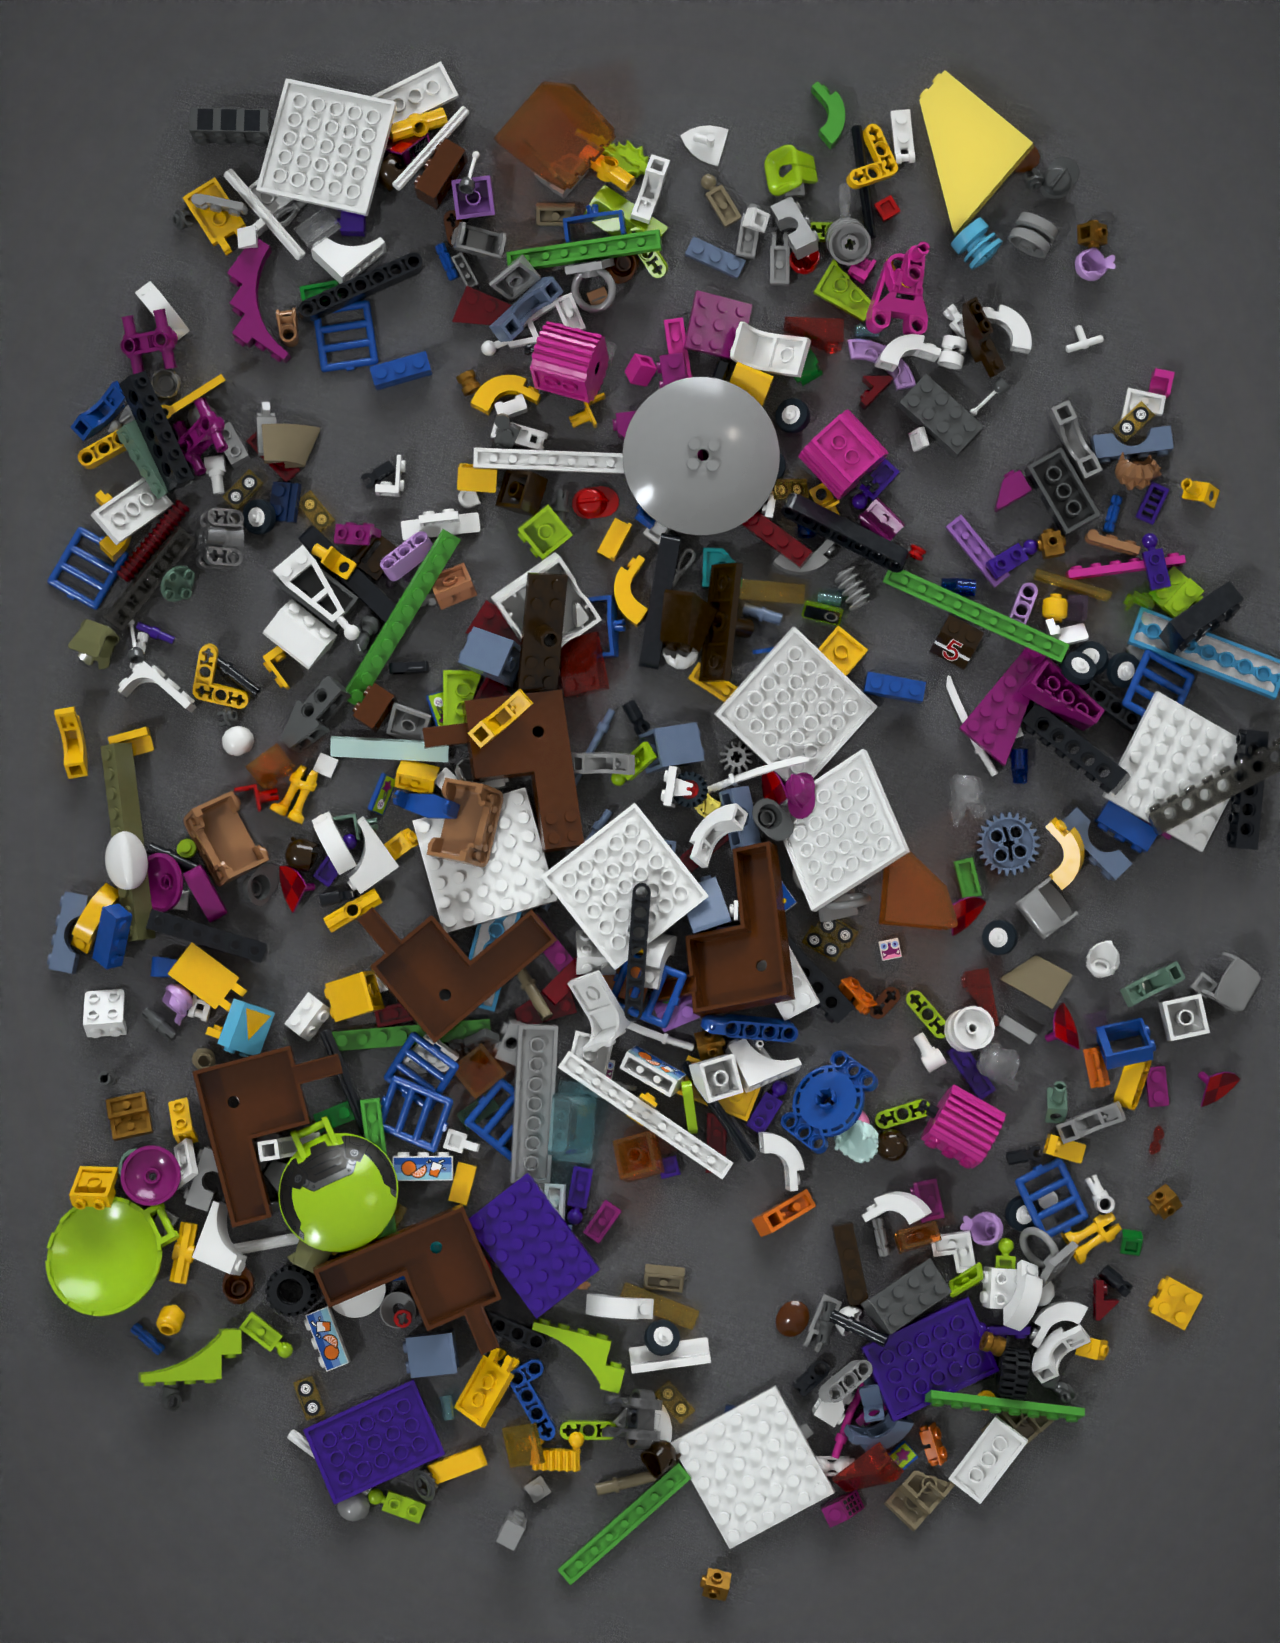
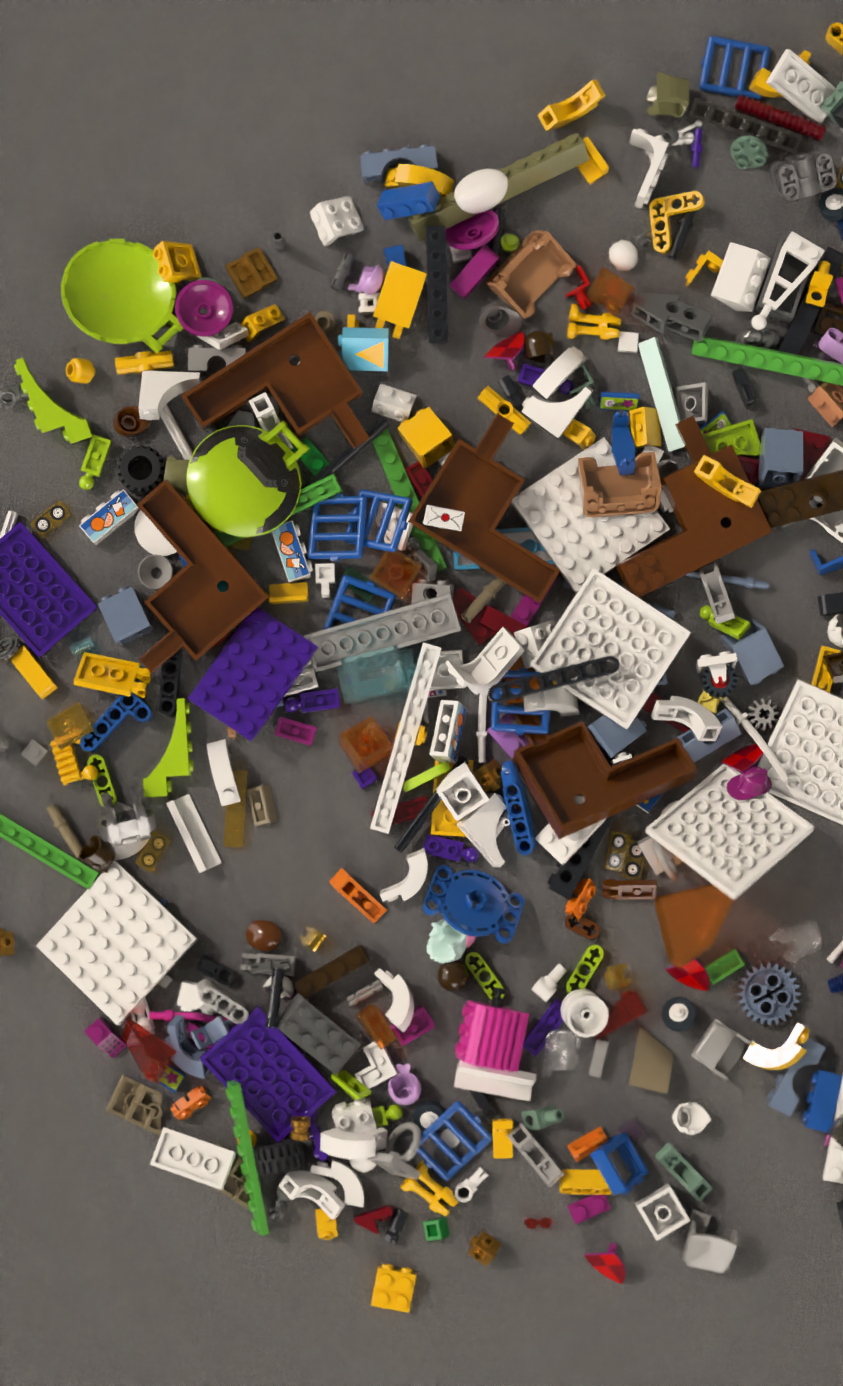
camera: 75 degrees right, 0 degrees up
(147, 1338) = (57, 356): blue axle -> none
(374, 707) = (696, 366): reddish brown brick -> none
(409, 1317) = (145, 573): red bush -> none
(442, 1006) = (444, 517): none -> white tile
(583, 666) = (799, 545): clear red slope -> none
(636, 717) = (769, 609): black bar -> none
(662, 1337) = (207, 820): black wheel -> none
(772, 819) = (717, 765): dark grey piece -> none
(812, 1271) = (312, 939): none -> clear yellow tile
(863, 944) = (629, 889): none -> reddish brown hinge
(889, 949) = (633, 915): tile -> none
(945, 987) = (614, 977): none -> clear yellow window
(1009, 1138) = (495, 1082): none -> white panel
(1064, 1028) = (614, 1101): shield -> none

